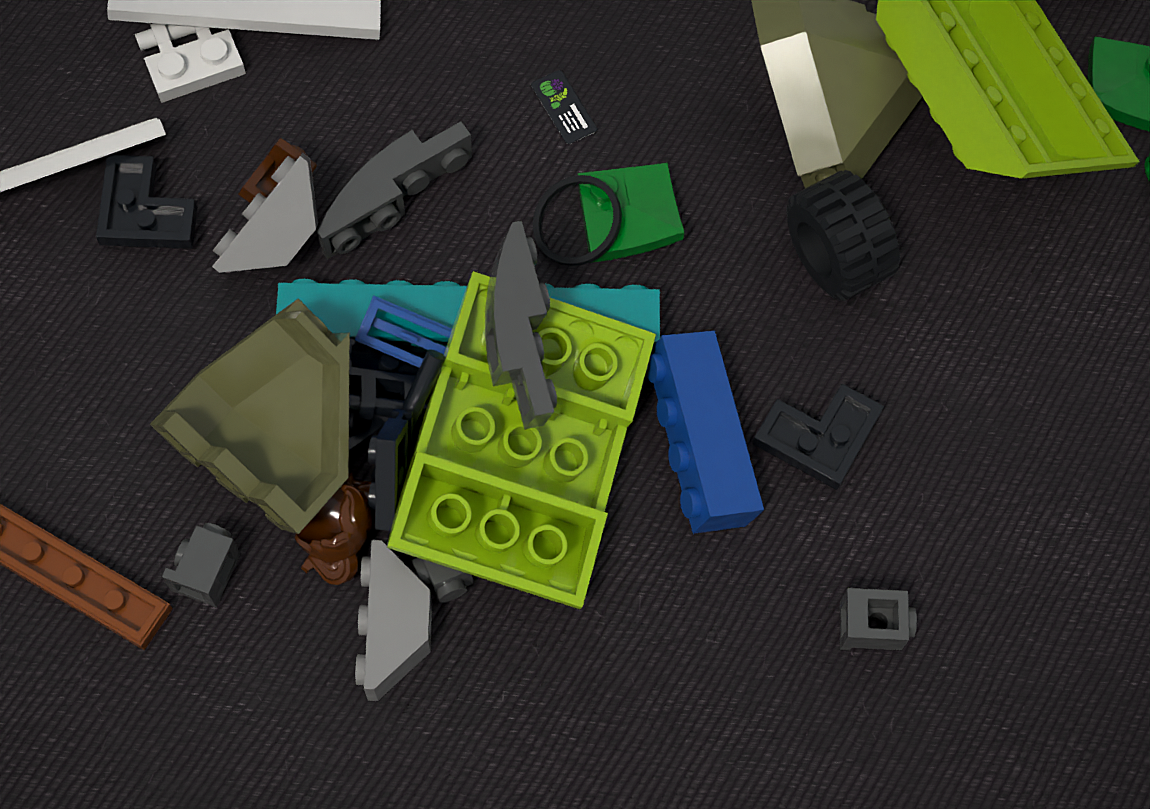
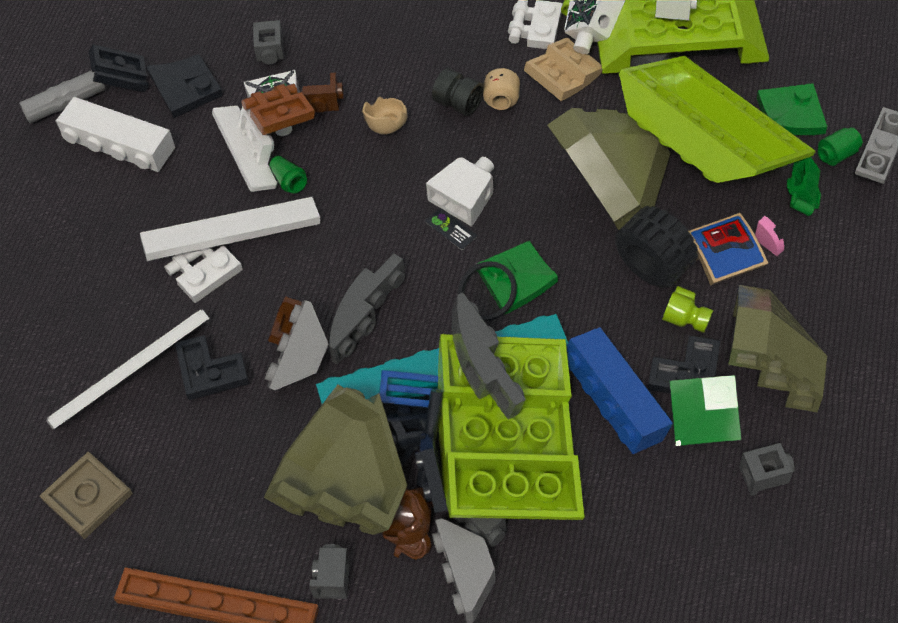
camera: 10 degrees left, 10 degrees down
(601, 52) = (462, 188): none -> white torso
(820, 504) = (705, 410): none -> green plate
(848, 343) = (682, 310): none -> lime piece
(950, 267) = (728, 248): none -> slope
(958, 445) = (779, 347): none -> olive panel
(1017, 269) = (767, 237): none -> bright pink tile
(1103, 210) = (804, 186): none -> green piece

